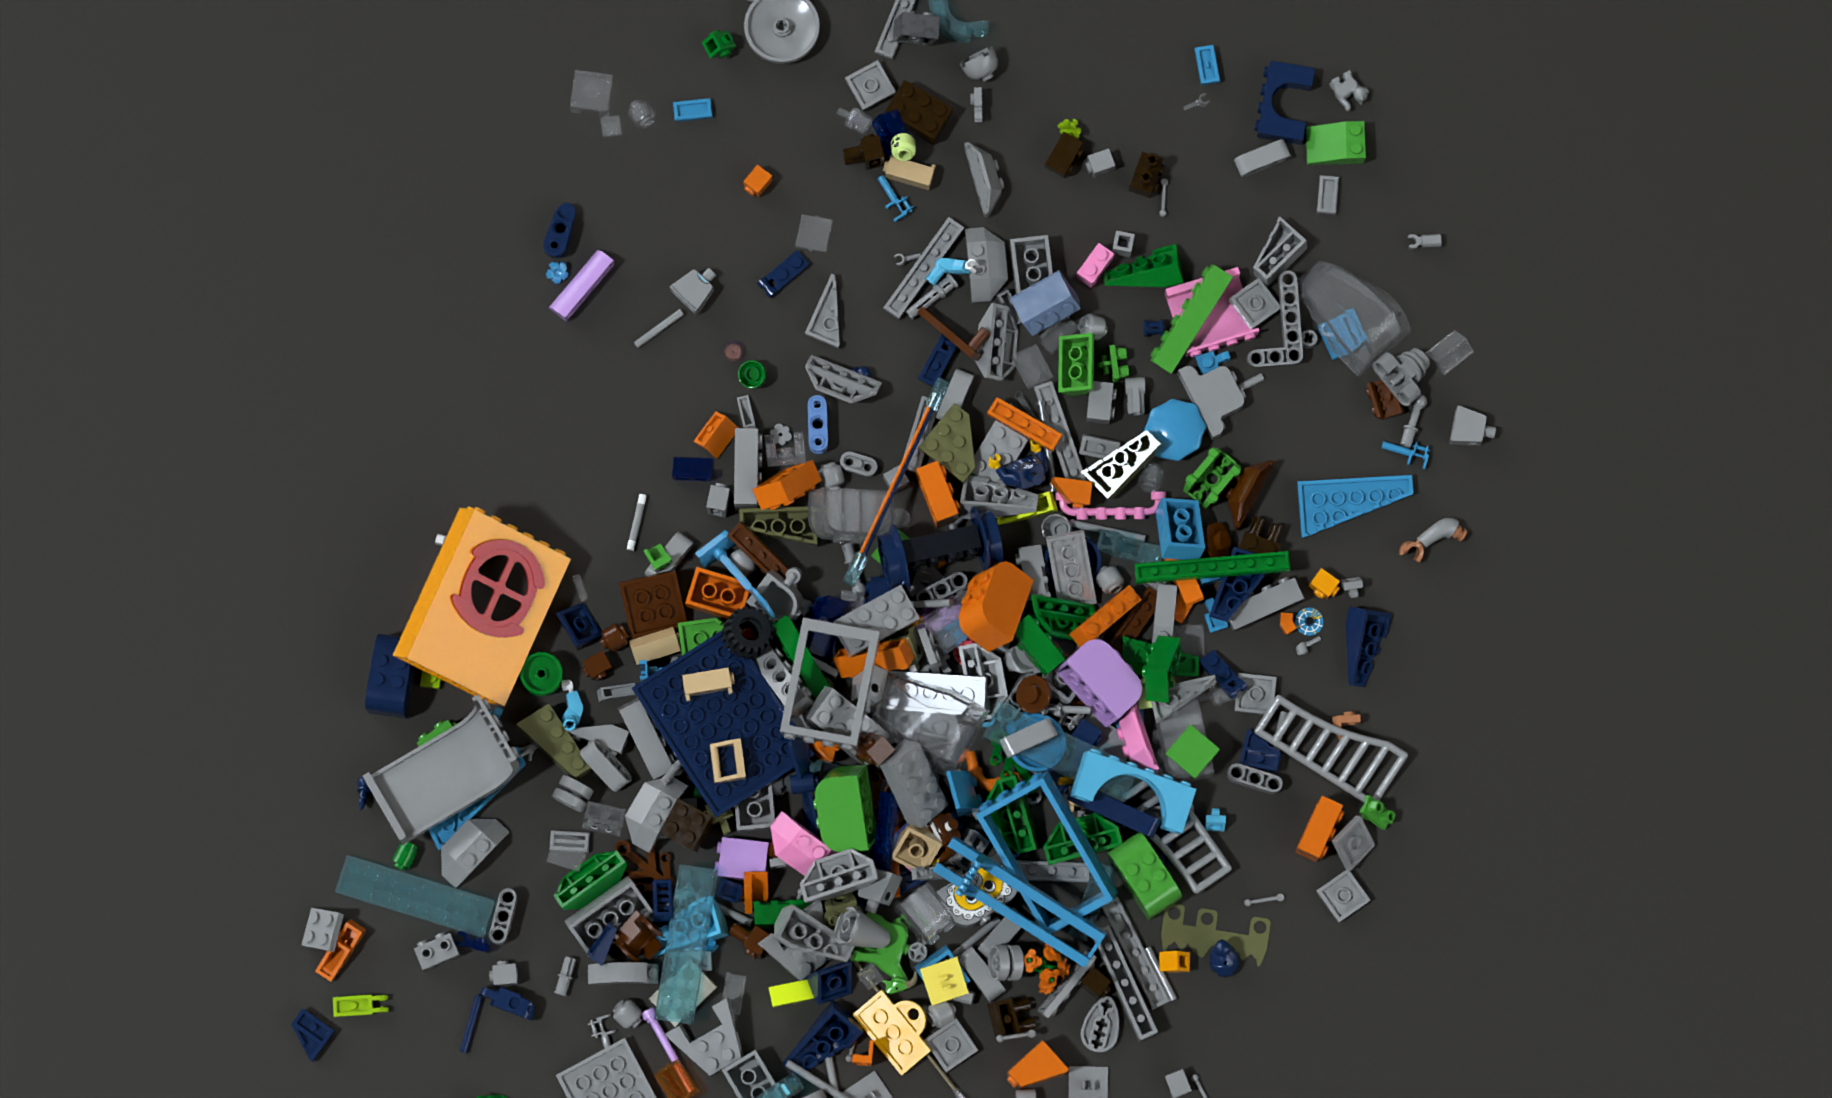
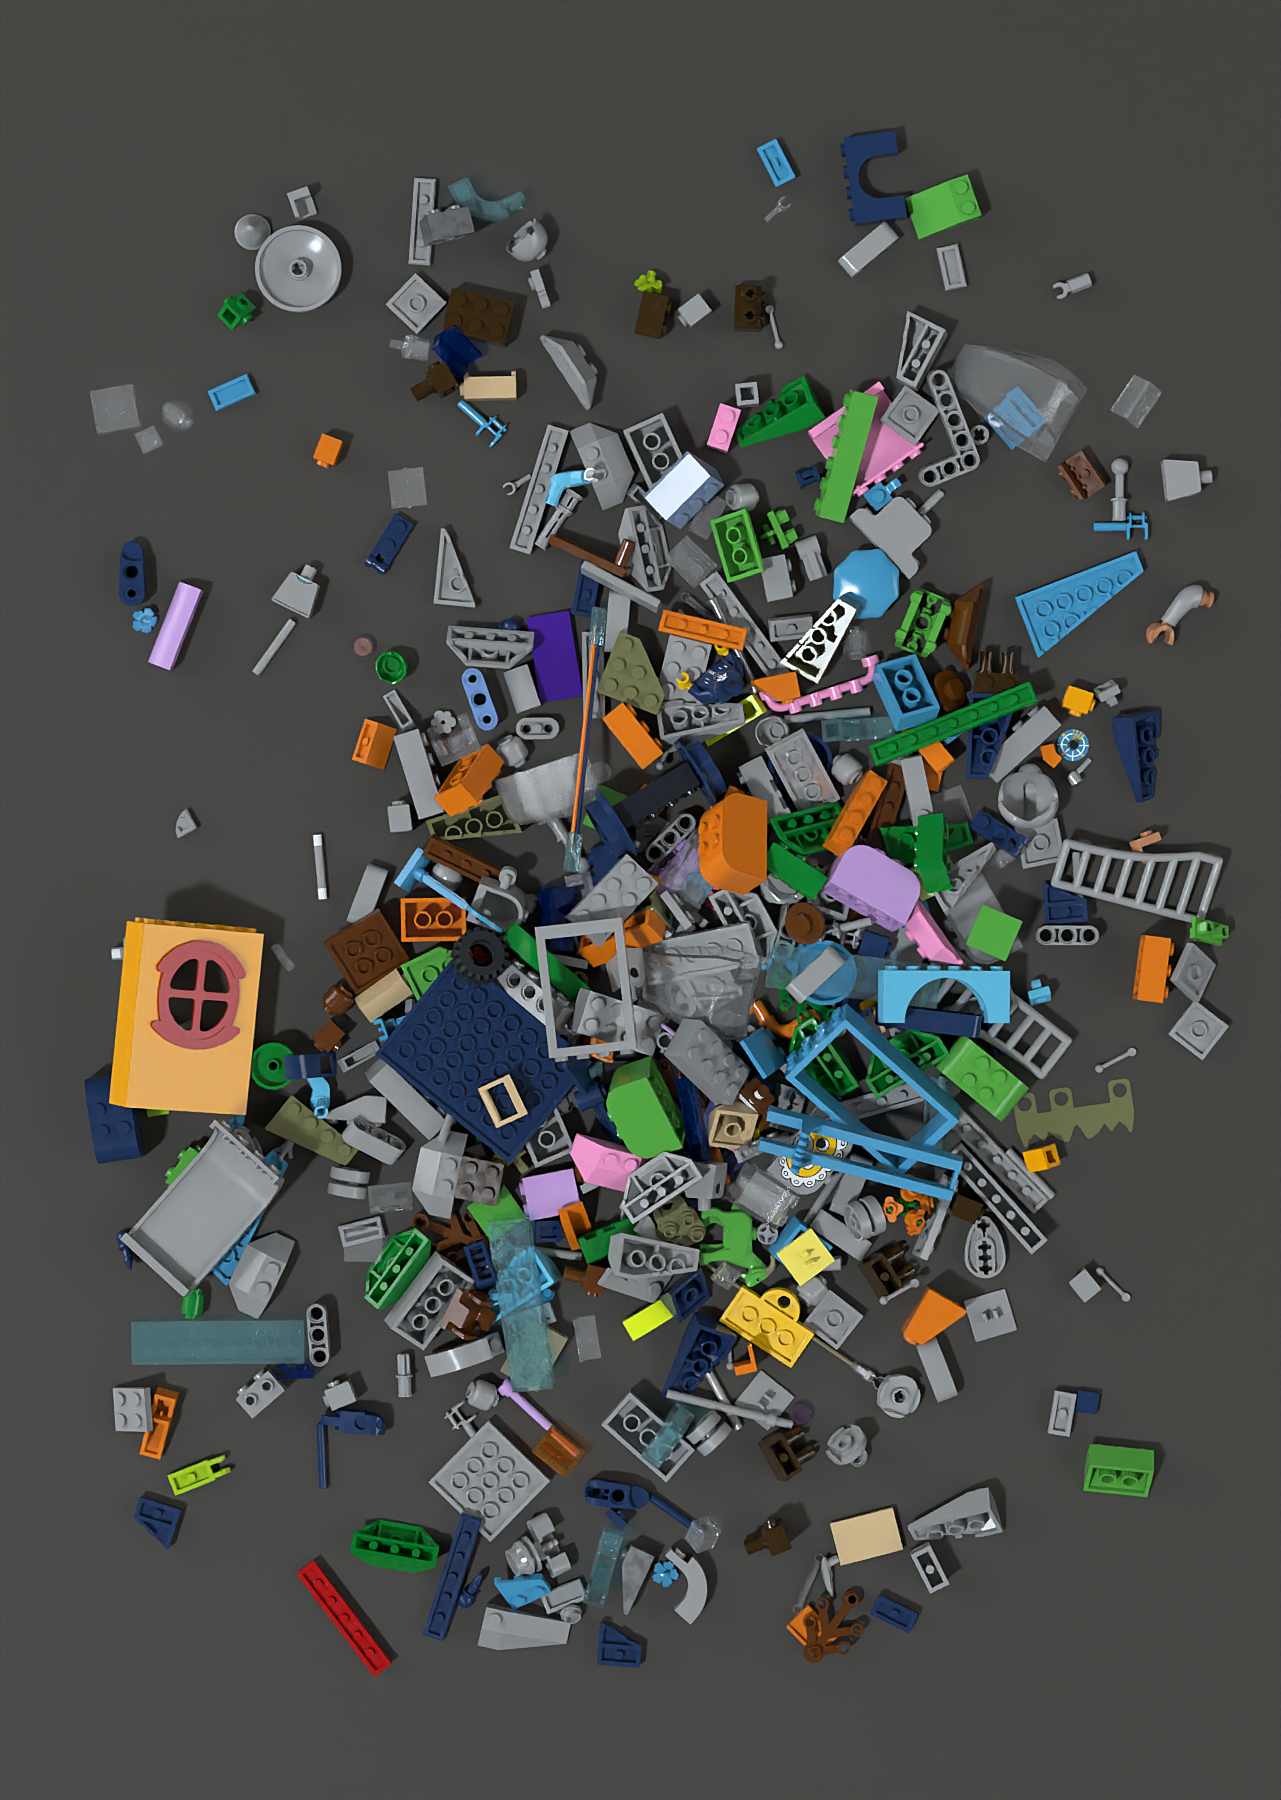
camera: 20 degrees left, 10 degrees up
(534, 451) = (185, 824): none -> light grey tile
(570, 683) = (307, 1066): none -> dark blue piece
(579, 625) = (295, 998): dark blue slope -> none
(601, 946) = (432, 1338): dark blue slope -> none
(658, 557) = (355, 901): bright green panel -> none
(681, 855) = (504, 1210): none -> bright green tile
(692, 469) = (360, 789): clear blue panel -> none
(708, 682) = (454, 1023): tan brick -> none
(715, 1048) = (586, 1402): light grey wing -> none
(856, 427) = (522, 689): none -> light grey brick
(859, 930) = (700, 1235): light grey cone -> none
(873, 749) = (654, 1042): reddish brown brick -> none
(889, 476) = (576, 732): light grey brick -> none
(892, 410) = (555, 657): none -> dark purple tile
(903, 147) = (474, 364): yellowish green head -> none
(932, 603) = (664, 860): light grey bar -> none
(966, 366) = (620, 586): none -> light grey tile
(1213, 623) = (972, 784): dark azure plate -> none
(1222, 952) = (1090, 1132): dark blue piece -> none
(1257, 650) = (1028, 798): none -> light grey piece
(1347, 88) = (939, 138): light grey animal -> none
(1403, 373) = (1093, 443): light grey beam -> none

